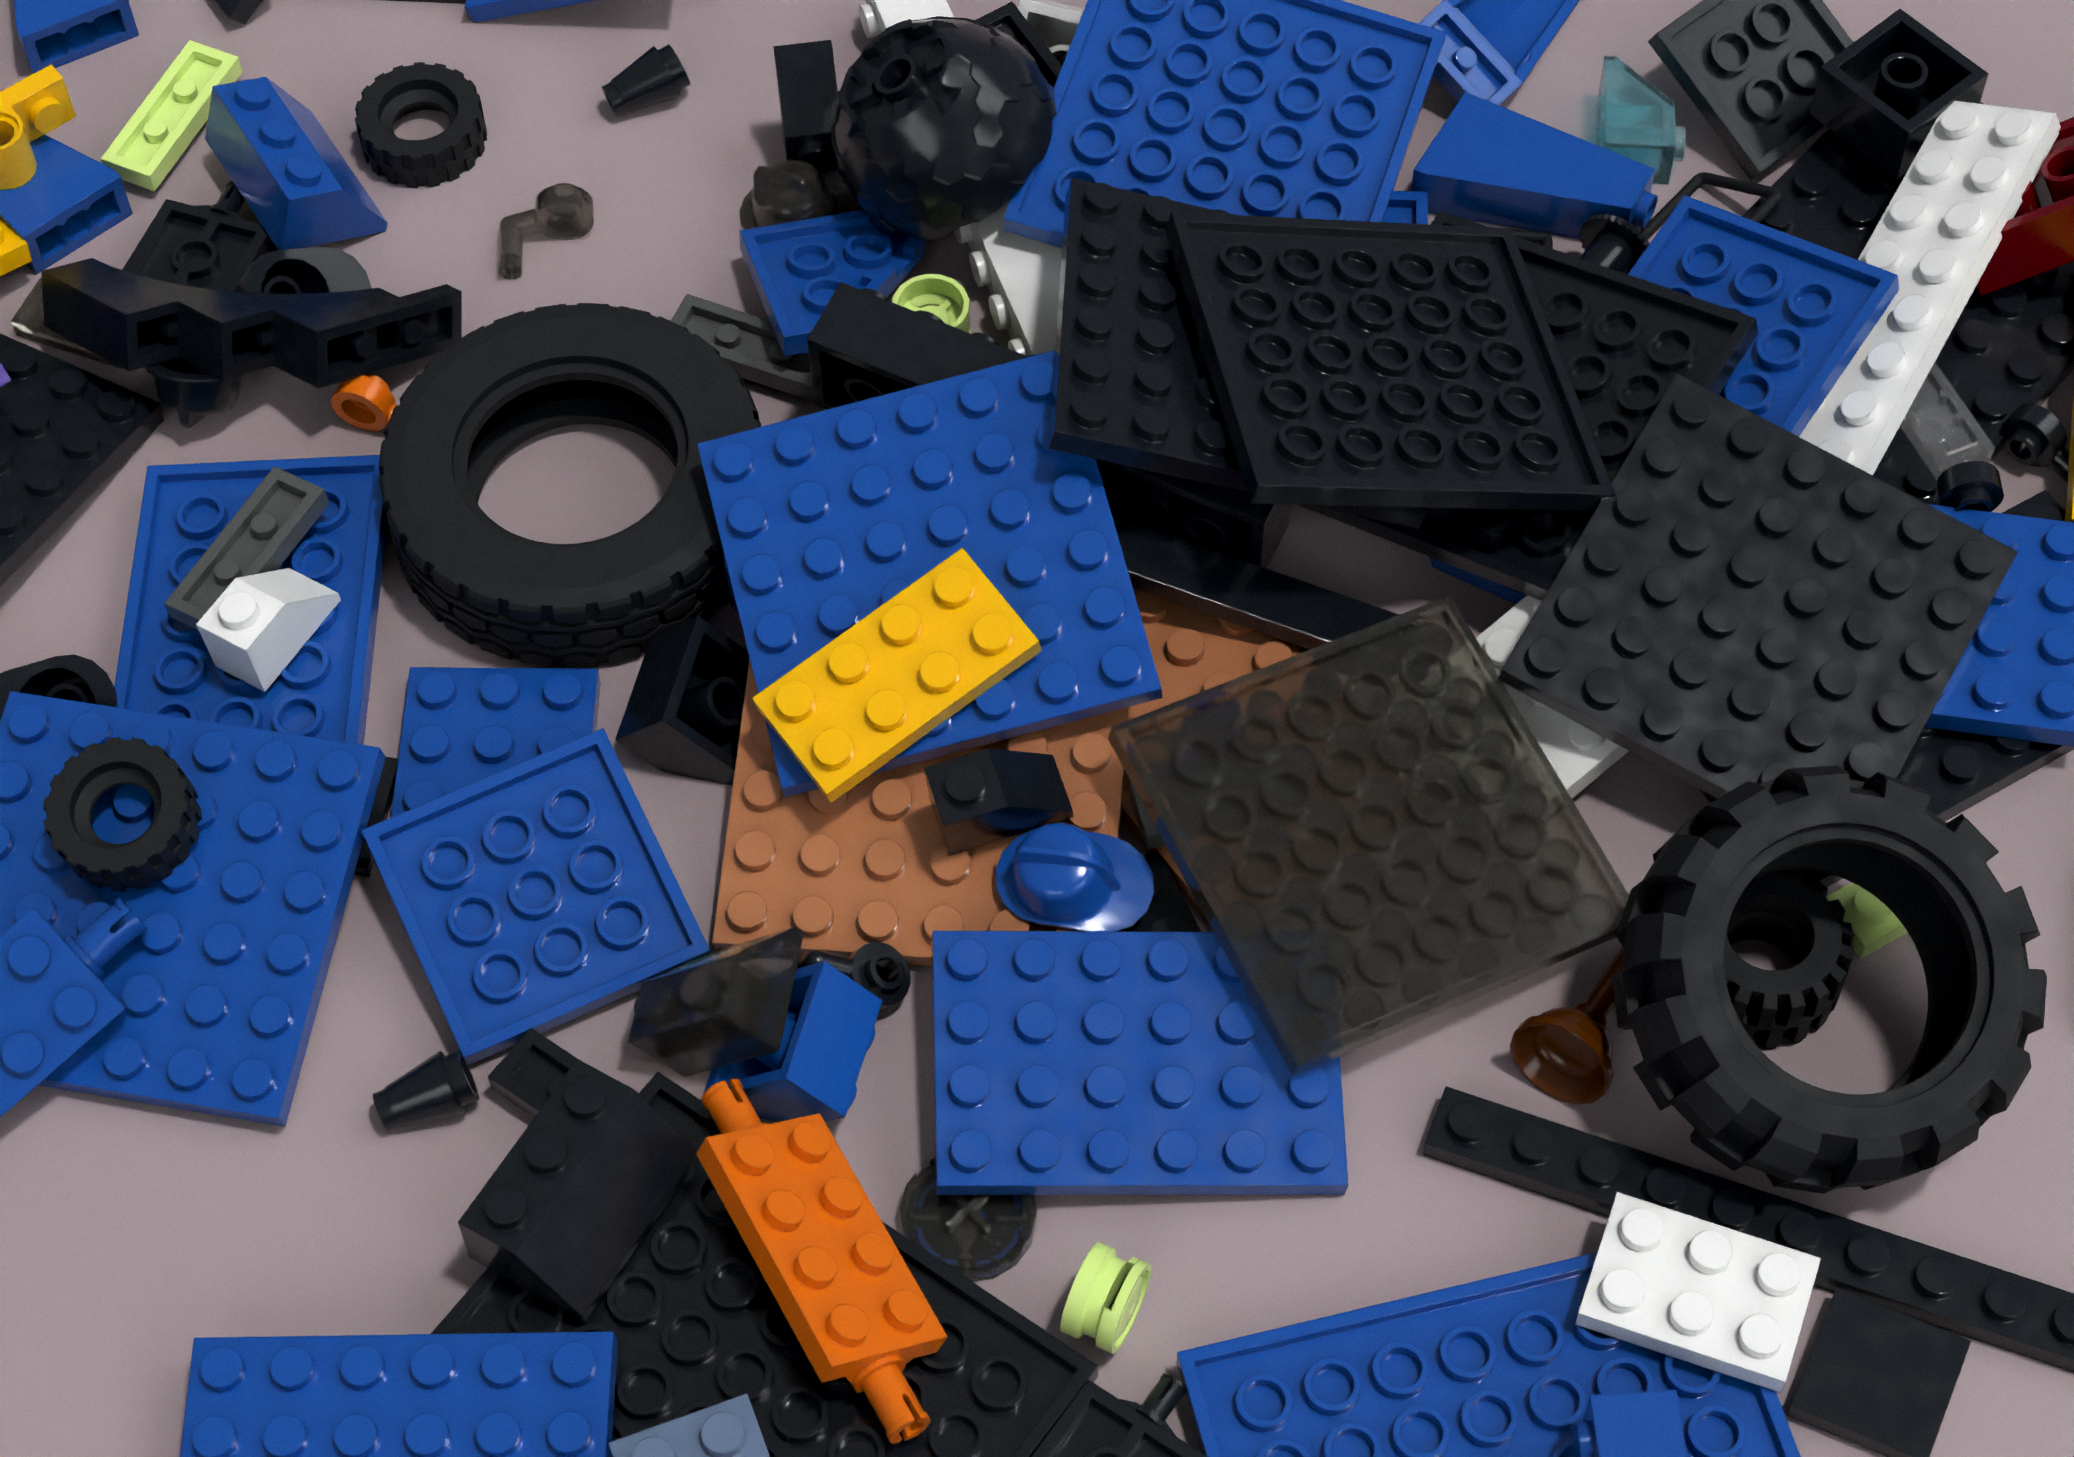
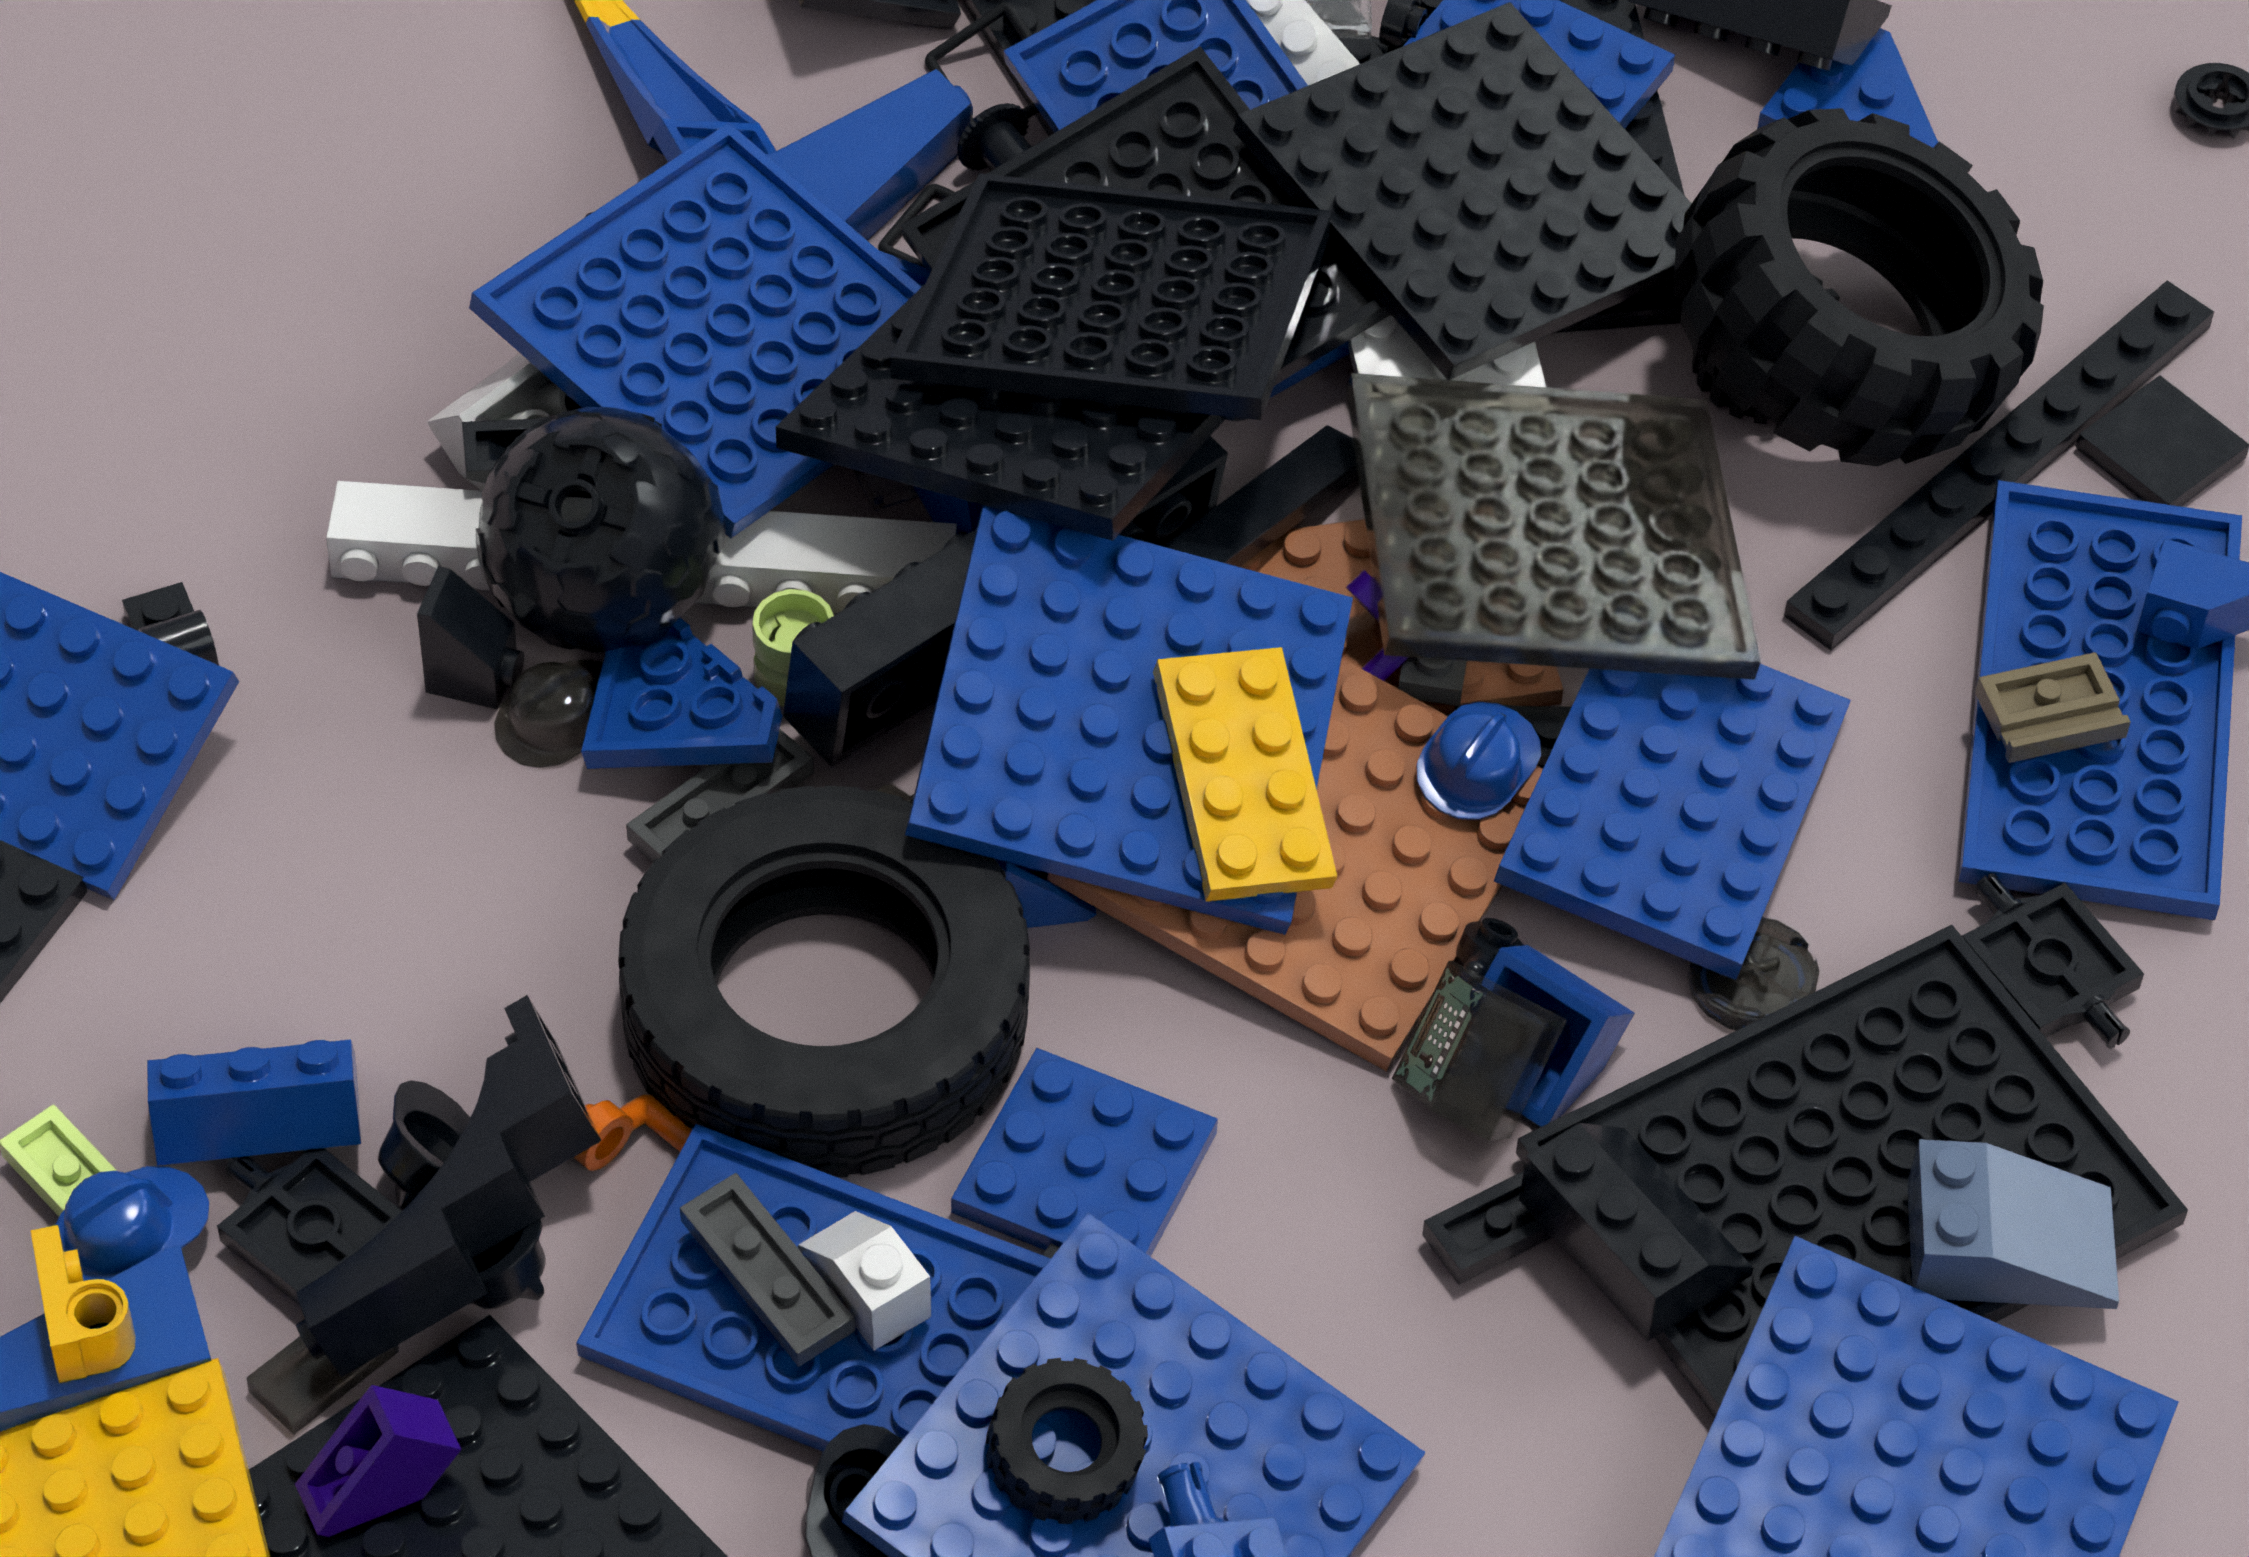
camera: 70 degrees left, 5 degrees down
(143, 141) = (130, 1217): none -> blue piece
(413, 90) = (242, 934): black tyre -> none
(427, 1092) = (1447, 1327): black cone -> none
(534, 895) = (1285, 1167): blue plate -> none
(559, 213) = (448, 897): clear smoke plate -> none
(647, 81) = (316, 769): black cone -> none
(688, 702) = (1124, 982): black slope -> none
(822, 1253) = (1772, 1059): orange plate -> none
(995, 796) = (1386, 776): black slope -> none
(1105, 1297) = (1894, 893): yellowish green wheel -> none
(1412, 1363) = (2052, 707): none -> dark tan plate
(1568, 1048) = (1799, 500): reddish brown piece -> none
(1638, 120) = (850, 66): clear light blue slope -> none
(1698, 1292) = (2059, 509): white plate -> none

